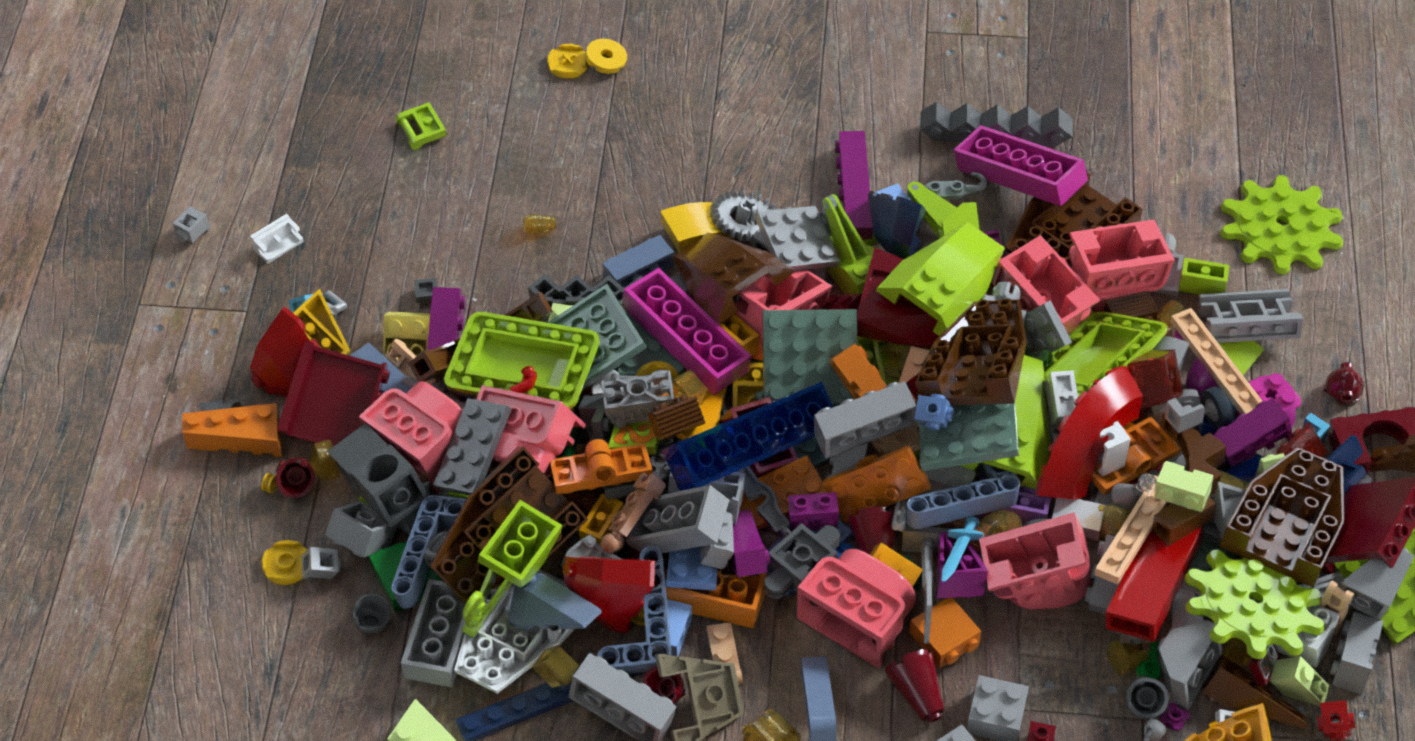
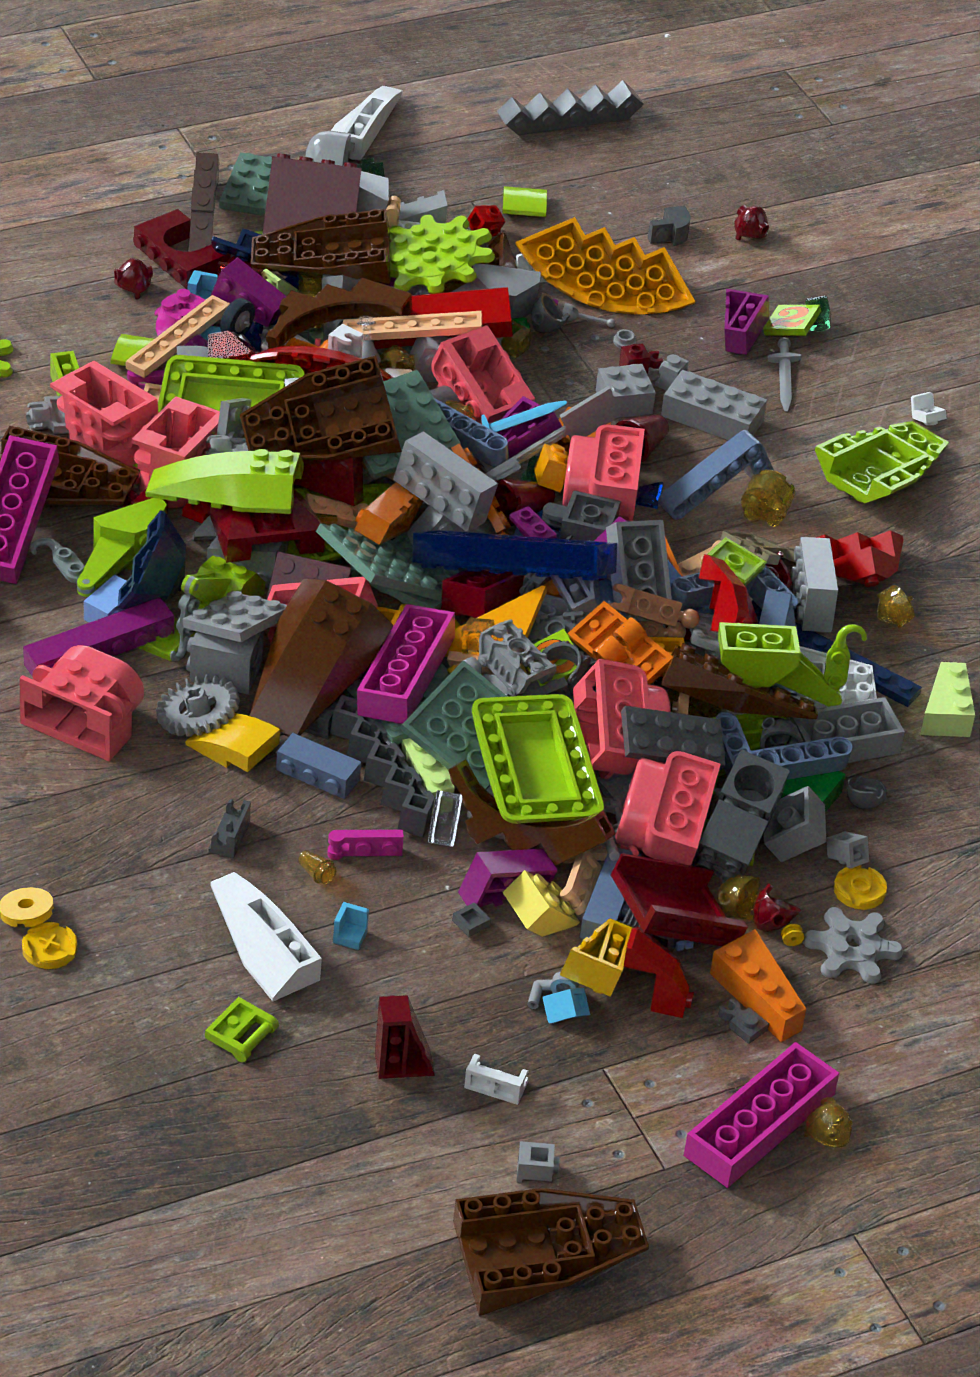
camera: 125 degrees left, 10 degrees down
(86, 406) = (827, 1120): none -> clear yellow helmet
(122, 194) = (541, 1241): none -> reddish brown wedge
(123, 365) = (760, 1114): none -> dark pink brick
(240, 536) = (842, 955): none -> light grey plate
(333, 182) = (400, 1042): none -> dark red wedge
(468, 218) = (351, 926): none -> medium azure panel
(489, 166) = (266, 938): none -> white wedge
(527, 382) = (566, 734): red arm -> none
(540, 258) = (365, 843): none -> dark pink plate
(555, 666) = (820, 635): clear yellow brick -> none
(607, 191) = (231, 830): none -> dark grey hinge
(616, 438) = (567, 651): none -> dark grey helmet
(665, 622) = (740, 560): none -> lime tile
(676, 417) = (529, 614): reddish brown brick -> none
(779, 141) = (83, 700): none -> coral brick
(841, 660) = (649, 495): none -> clear blue slope
(933, 412) = (413, 423): medium blue brick -> none
(1183, 417) = (279, 316): light grey panel -> none
(1183, 487) = (366, 289): yellowish green brick -> none
(1268, 324) = (105, 325): light grey fence -> none

